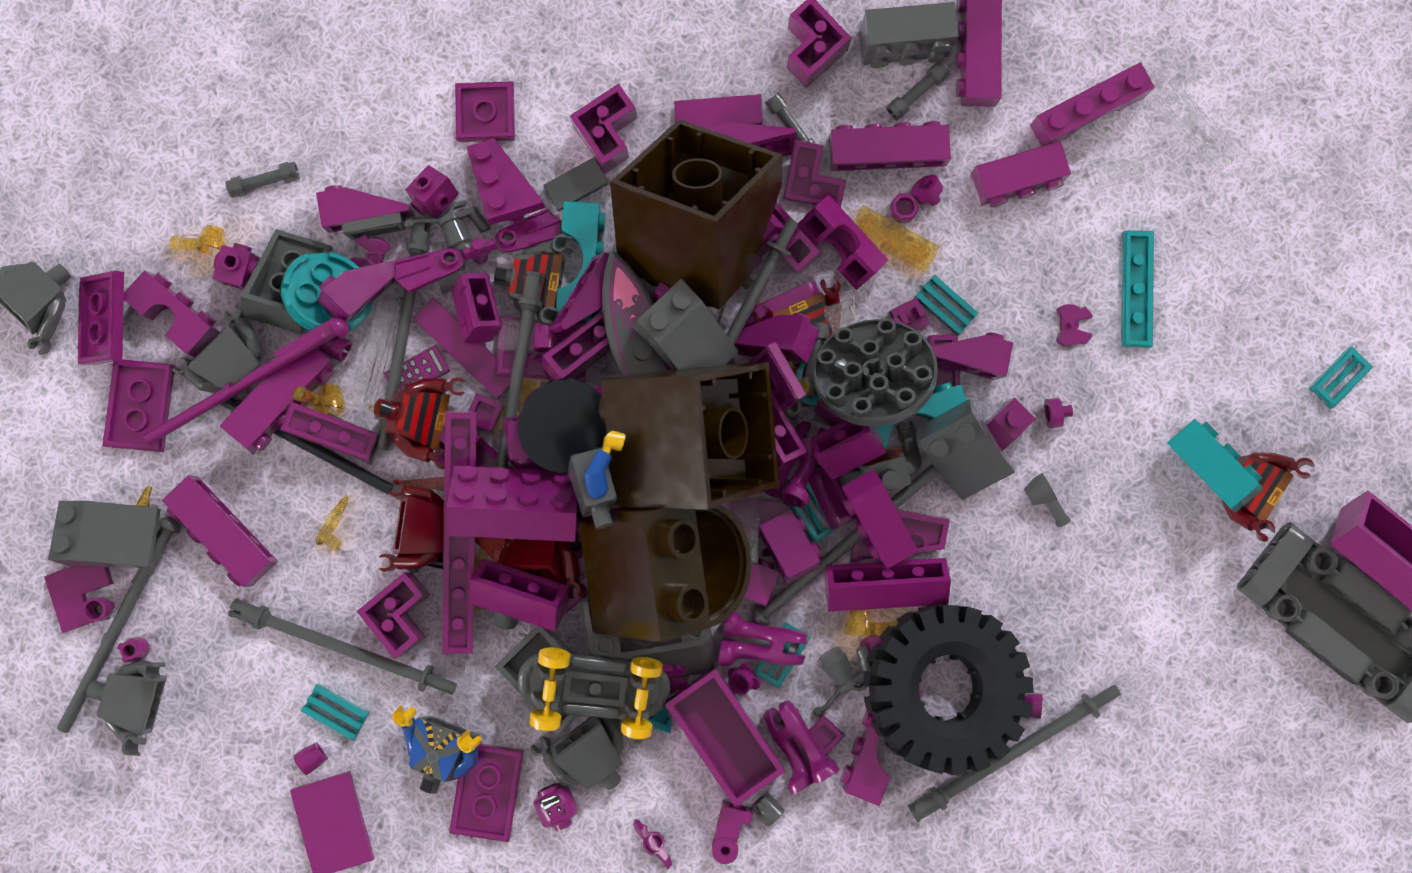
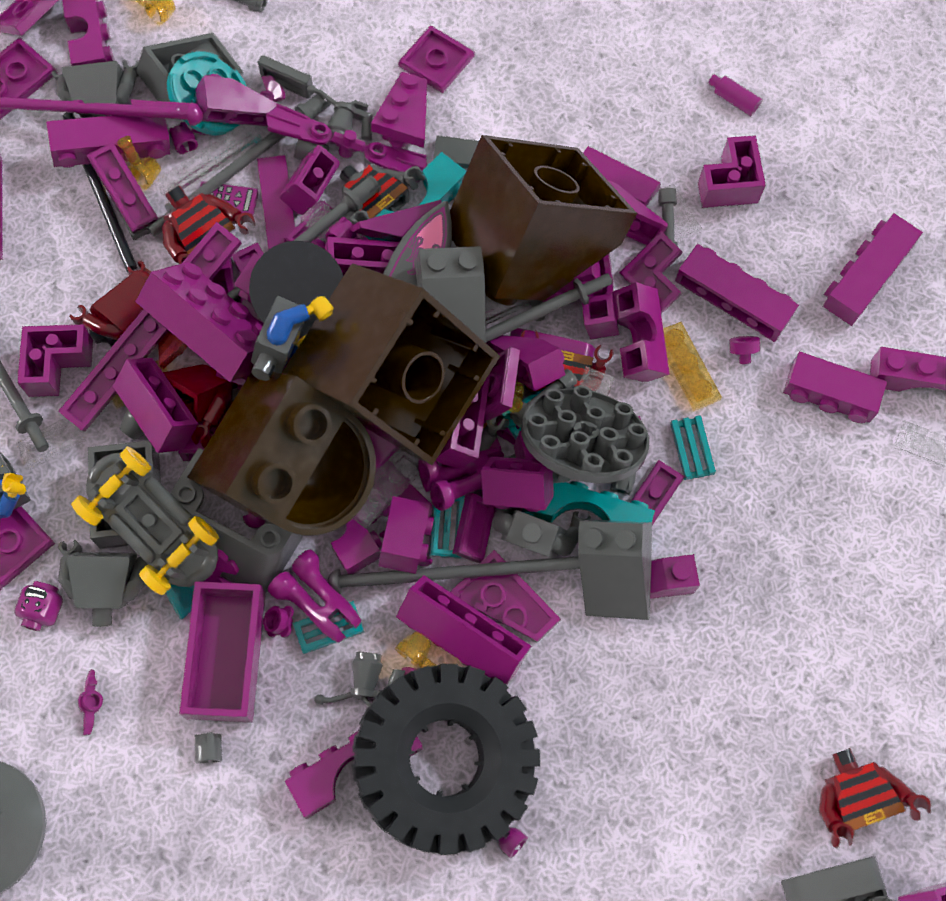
camera: 35 degrees right, 15 degrees down
(234, 265) = (159, 29): magenta brick -> none
(325, 534) = (64, 259): clear yellow bar -> none
(347, 205) = (279, 46): magenta slope -> none
(431, 192) = (347, 80): magenta brick -> none
(599, 123) = (522, 116): magenta brick -> none
(727, 831) = (157, 739): magenta leg -> none
(785, 727) = (280, 691): magenta piece -> none
(826, 734) = (308, 724): magenta tile -> none
(878, 519) = (496, 563): magenta brick -> none
(904, 207) = (714, 347): magenta tile -> none
(908, 34) = (815, 216): dark grey brick -> none
(911, 314) = (658, 434): magenta tile -> none
(934, 75) = (817, 267): dark grey bar -> none
(940, 797) = (364, 858): dark grey bar -> none
(981, 355) = (686, 499): magenta slope -> none
(1041, 492) = (659, 658): dark grey bar -> none
(1056, 412) = (723, 600): magenta tile -> none
(1069, 325) = (795, 532): magenta piece -> none
(1137, 289) = (872, 553): teal tile -> none
(1216, 464) = (837, 745): teal brick -> none

